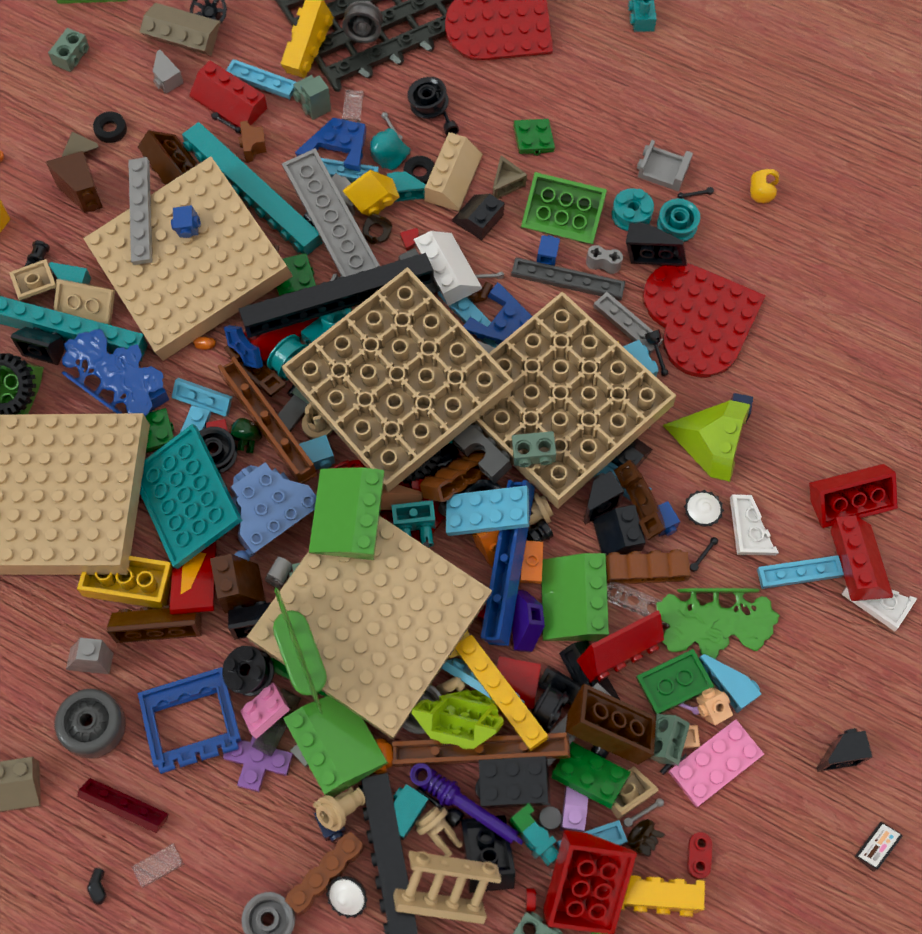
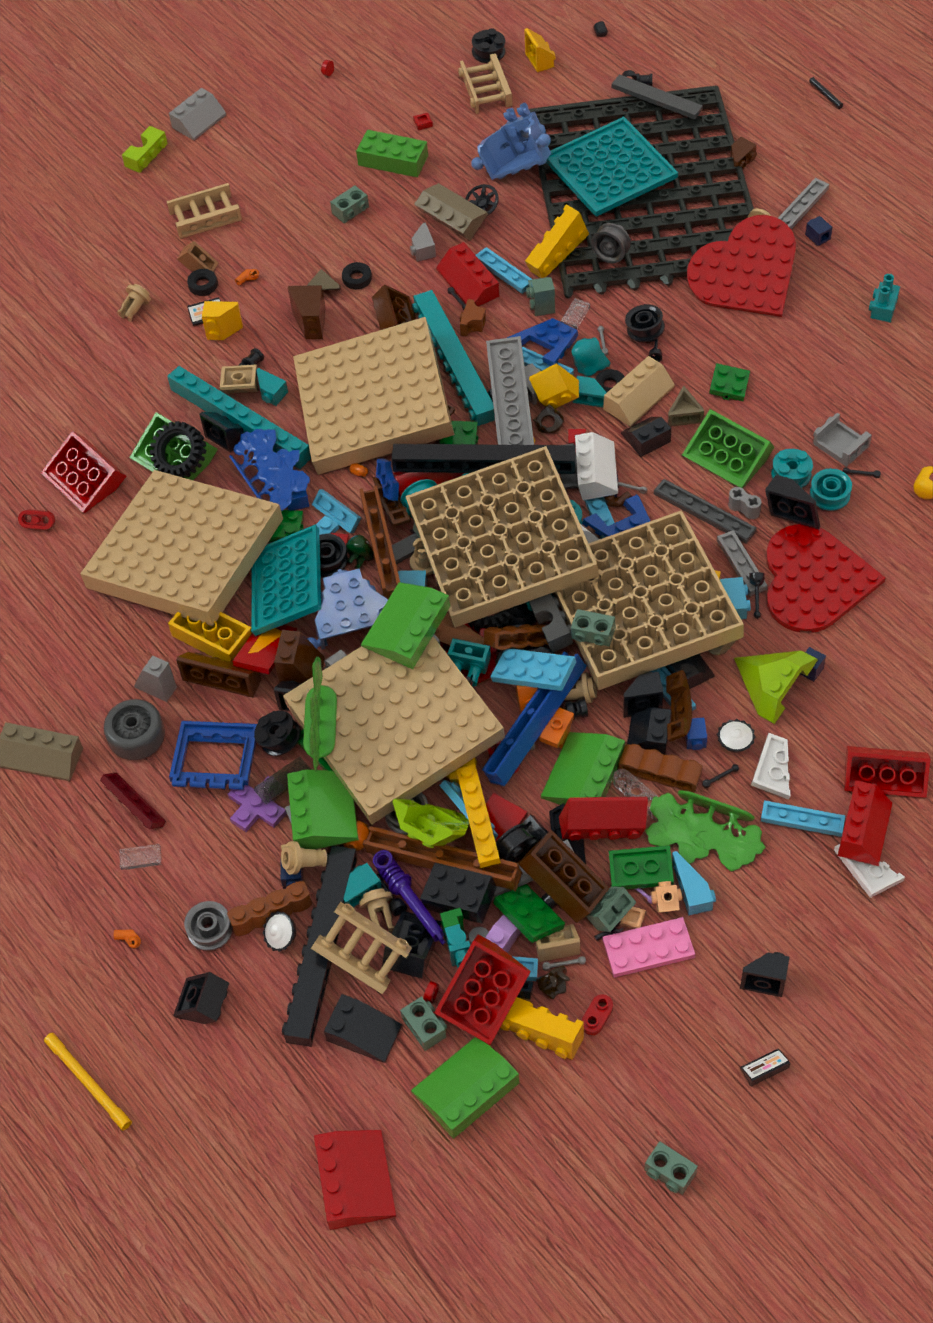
camera: 30 degrees right, 10 degrees down
(84, 300) = (273, 406): tan tile -> none
(95, 888) = (84, 854): black arm -> none
(140, 211) = (347, 345): light grey plate -> none
(185, 221) = (379, 362): blue brick -> none
(264, 710) = (276, 766): bright pink plate -> none
(450, 685) = (445, 800): tan arm -> none
(527, 622) = (530, 775): dark purple slope -> none
(548, 250) = (695, 480): blue brick -> none

